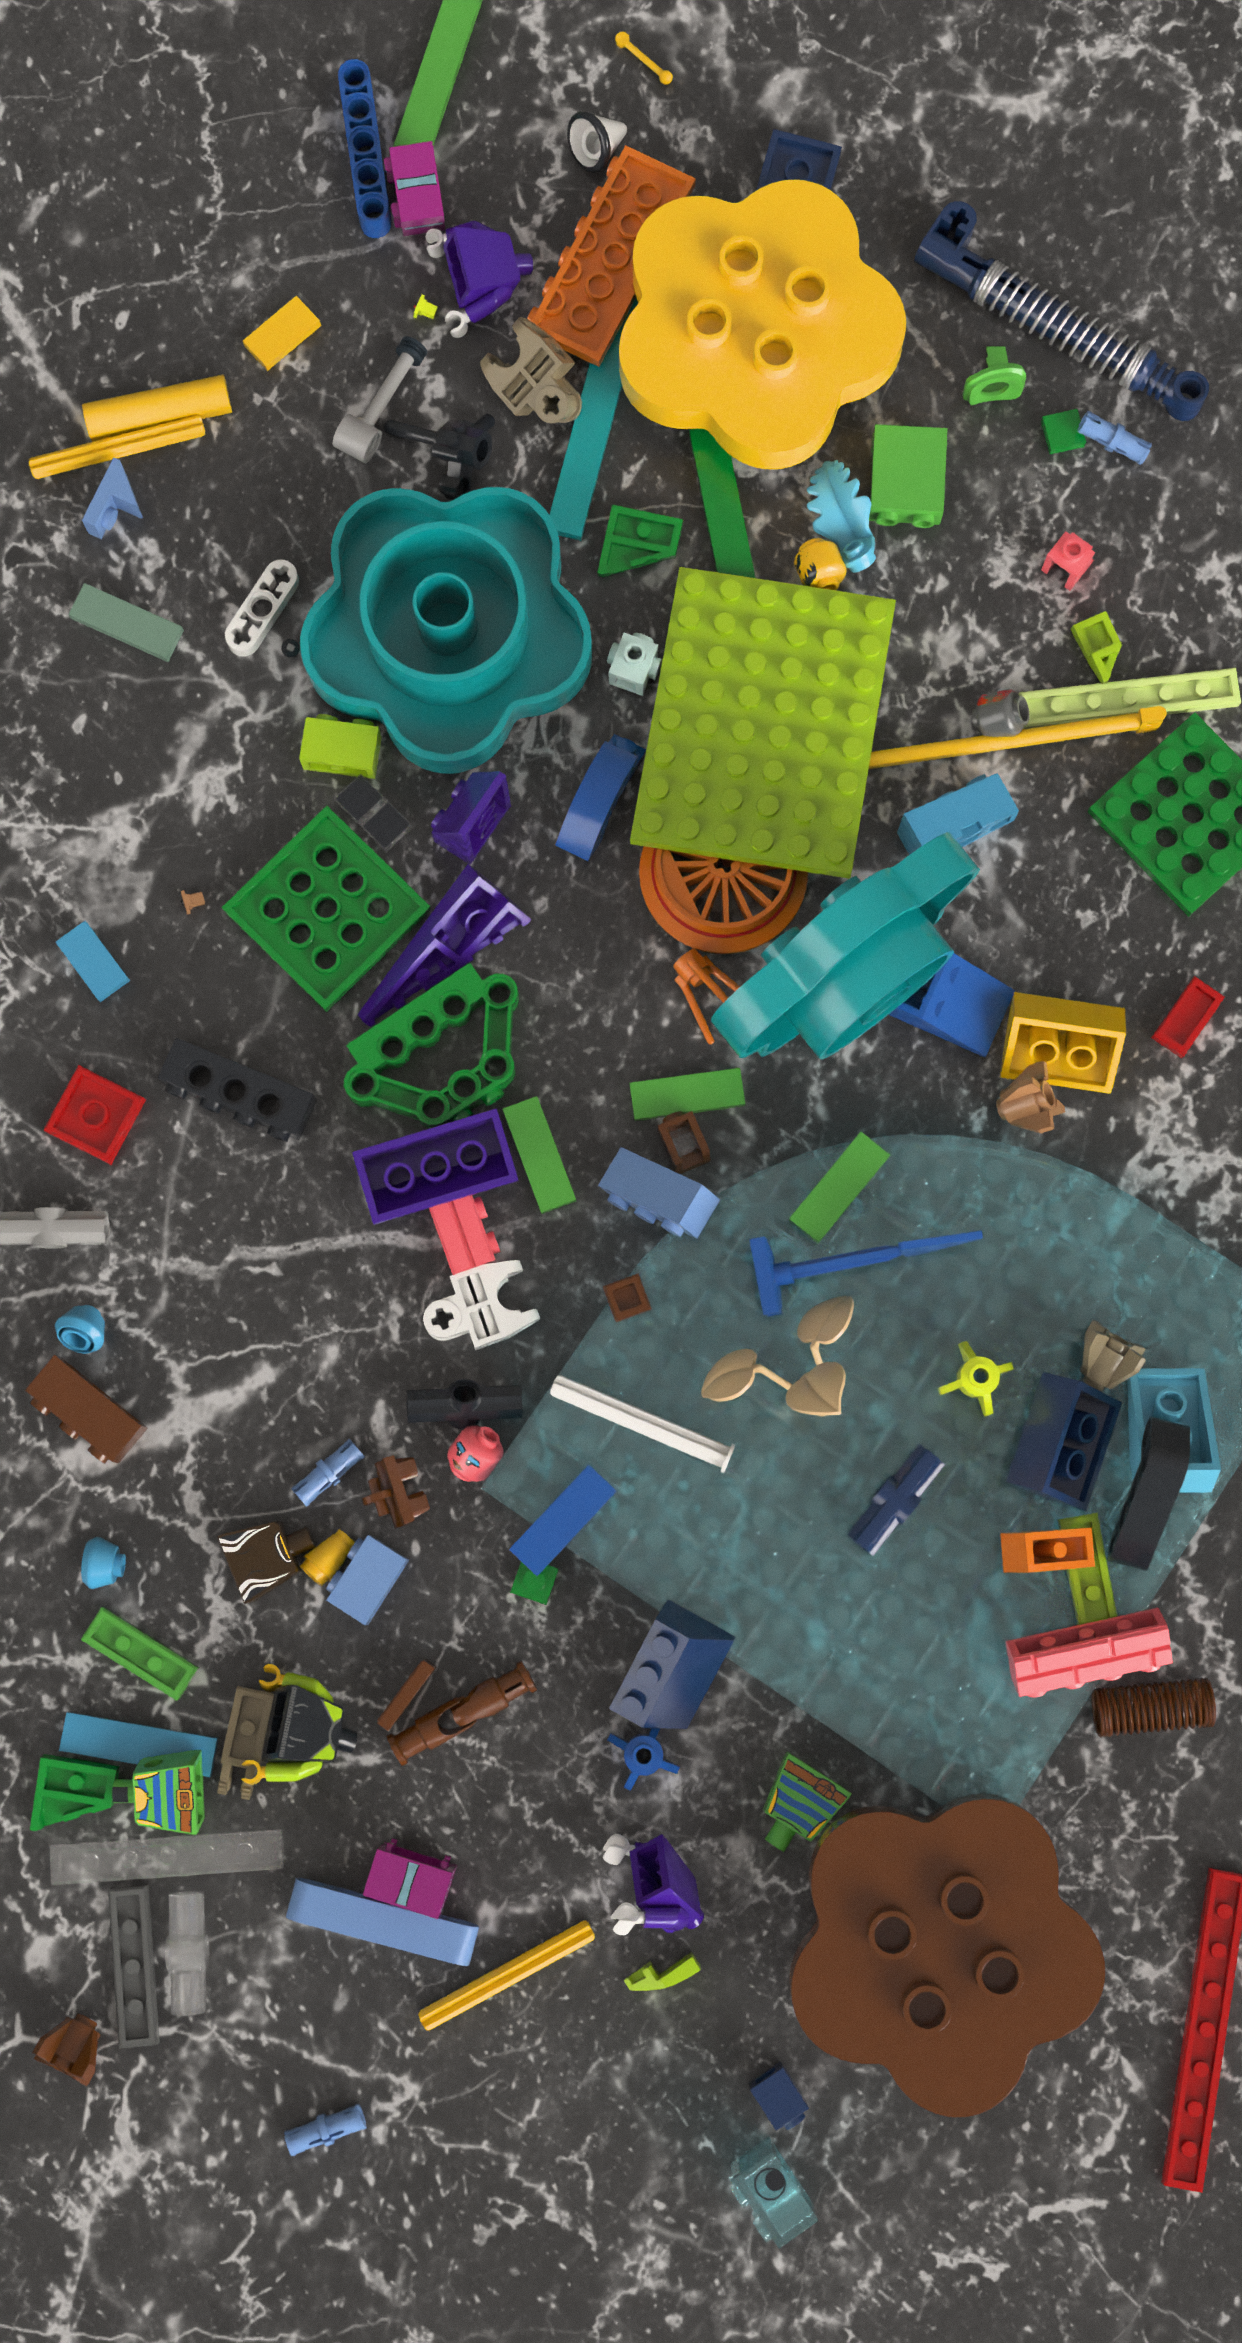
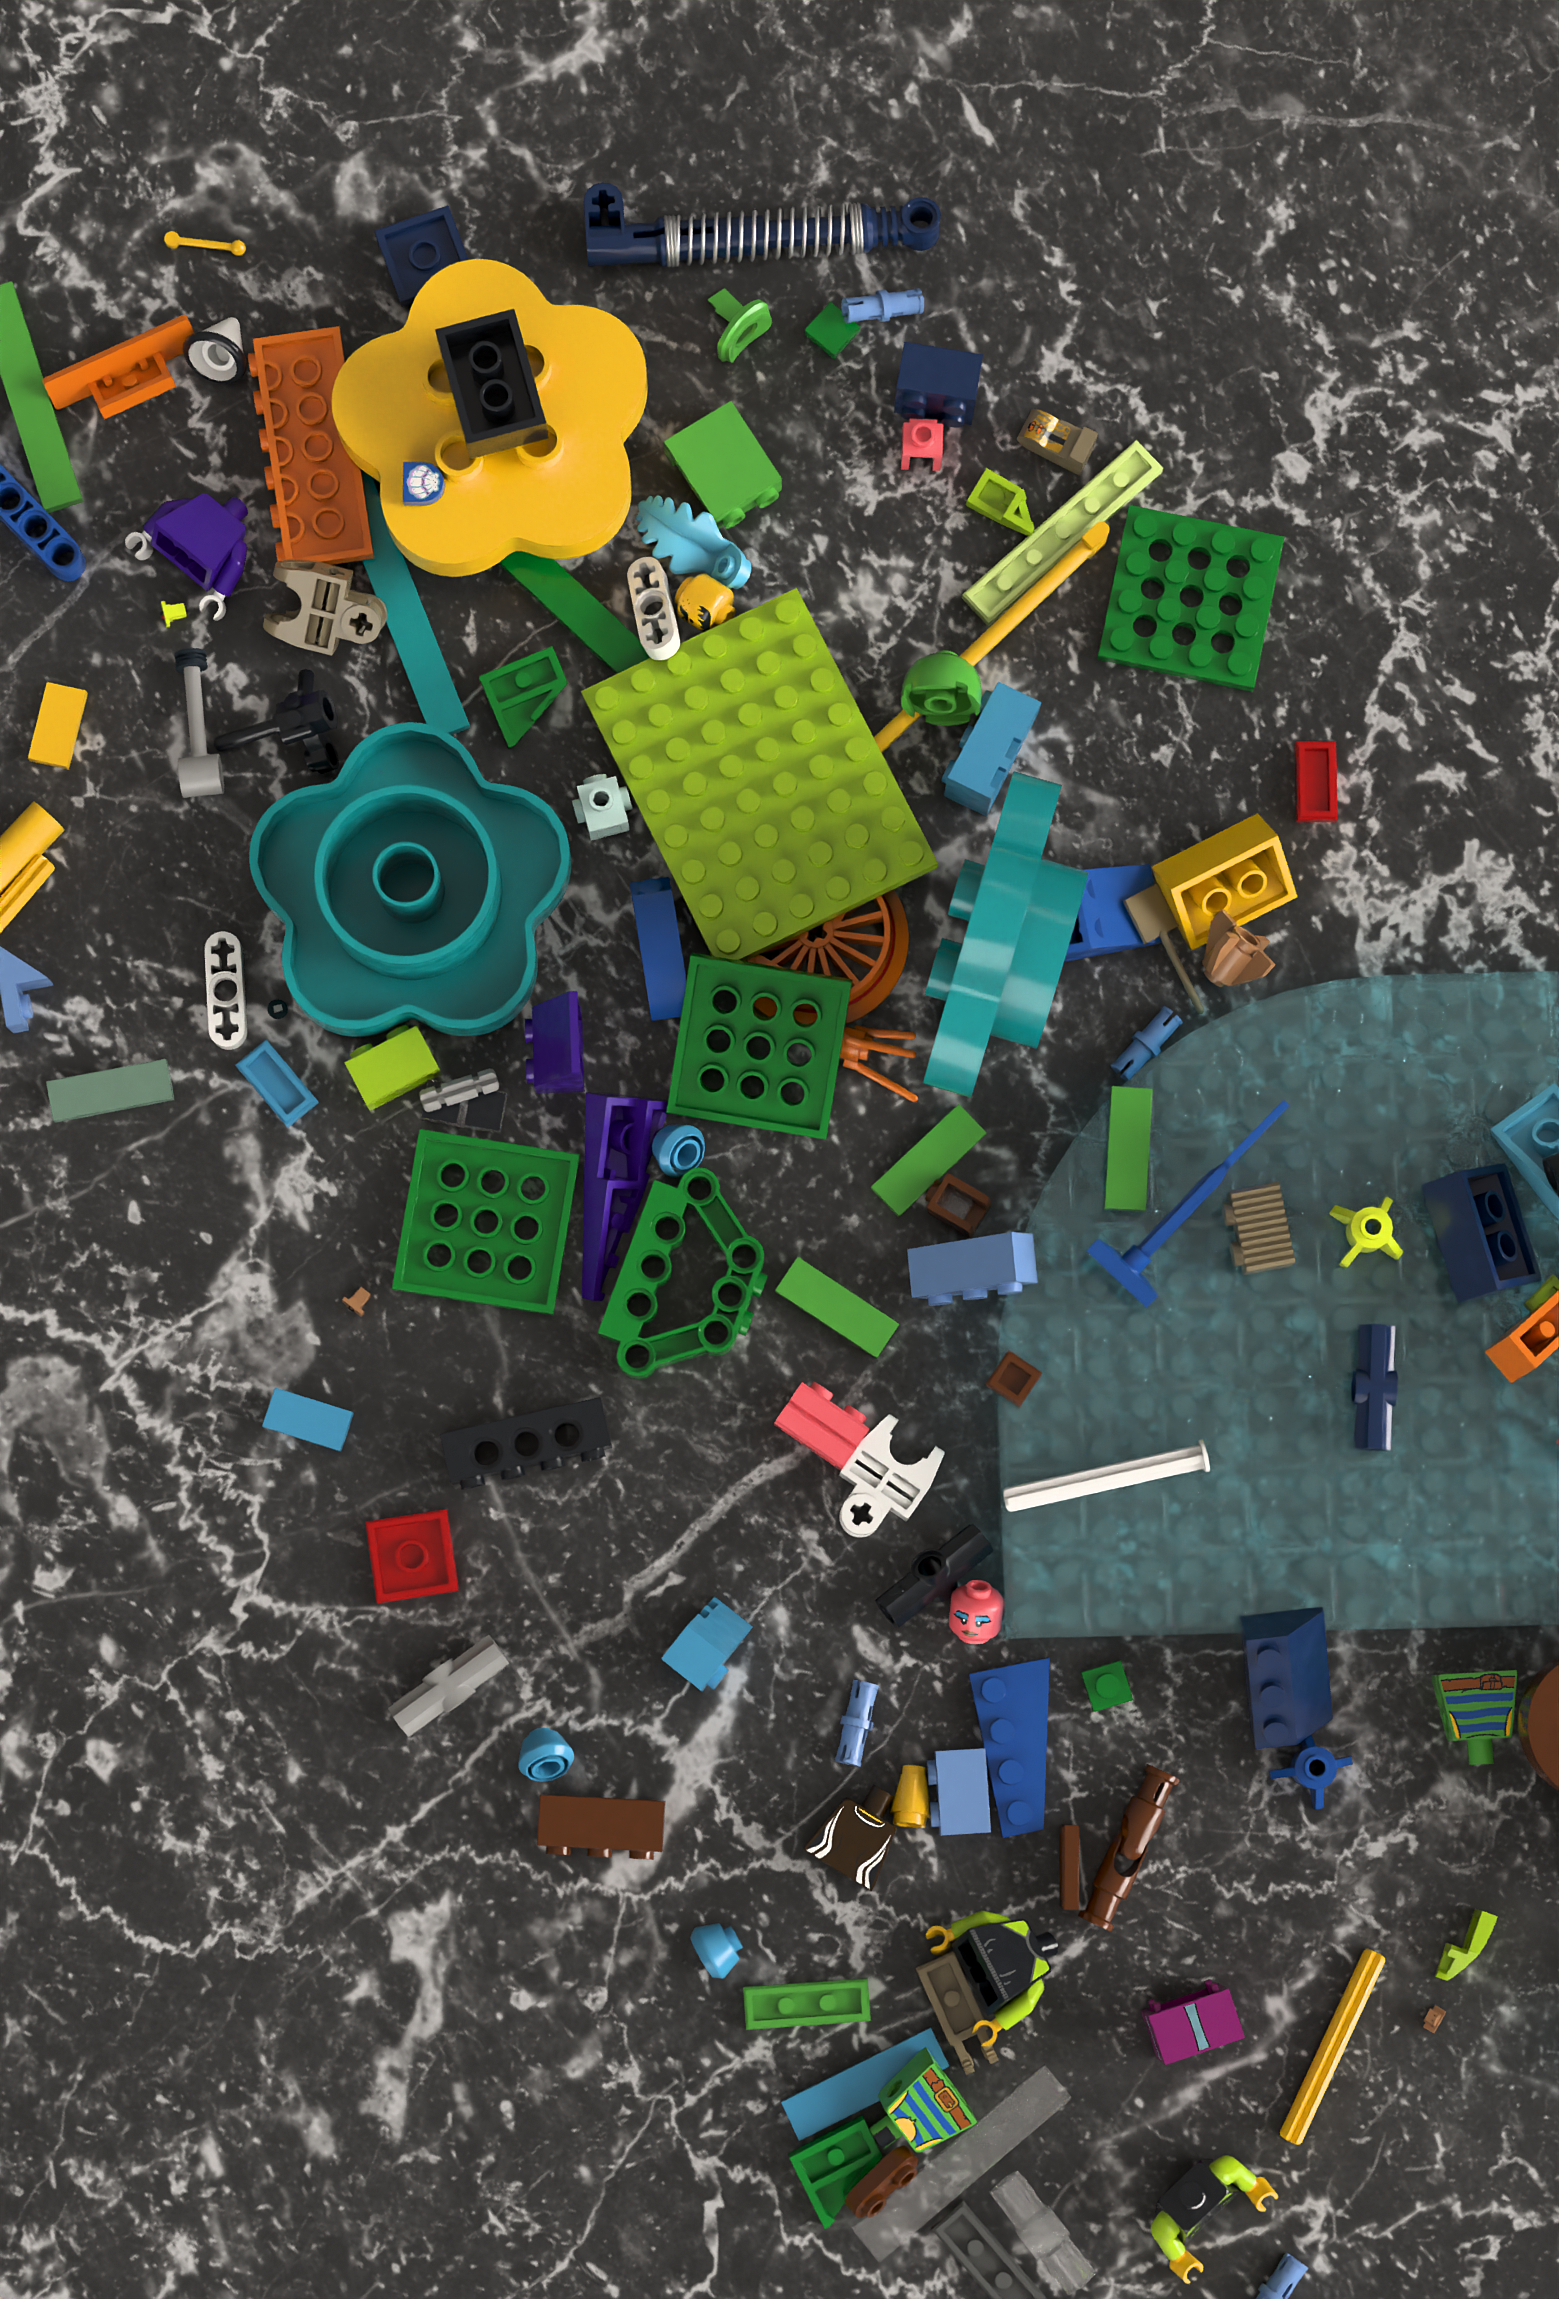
camera: 40 degrees left, 0 degrees up
(106, 1825) = (892, 2172): none -> reddish brown plate
(249, 701) = (277, 1083): none -> dark azure tile
(250, 1333) = (707, 1645): none -> dark azure wedge
(319, 2015) = (1196, 2201): none -> torso
(376, 797) = (459, 1090): none -> light grey axle
(380, 1922) = (1191, 2080): medium blue beam -> none
(390, 1479) = (927, 1701): reddish brown hips -> none
(417, 188) = (92, 510): magenta container -> none
(435, 1166) = (758, 1384): dark purple slope -> none
(441, 1562) = (1013, 1731): none -> blue wing
(505, 953) = (678, 1149): none -> dark azure cone
(514, 108) = (124, 372): none -> orange bracket
(562, 1520) = (1099, 1613): blue tile -> none
(598, 2011) = (1434, 2018): none -> medium nougat piece
(662, 1886) = (1410, 1866): dark purple torso -> none
(665, 325) = (421, 484): none -> tile
(670, 944) = (730, 1102): none -> green piece
(768, 280) = (492, 383): none -> black brick
(779, 555) = (663, 619): none -> white beam
(816, 1391) = (1243, 1342): tan plant -> none
(895, 1316) = (1258, 1228): none -> dark tan brick
(916, 1121) = (1146, 1043): none -> medium blue pin
(949, 747) = (942, 689): none -> bright green cylinder
(986, 1031) = (1153, 920): none -> dark tan piece
(1000, 714) = (961, 625): dark grey head -> none
(1109, 1358) = (1468, 1132): dark tan brick -> none
(1113, 521) = (937, 384): none -> dark blue brick
(1175, 627) = (1057, 440): none -> dark tan leg

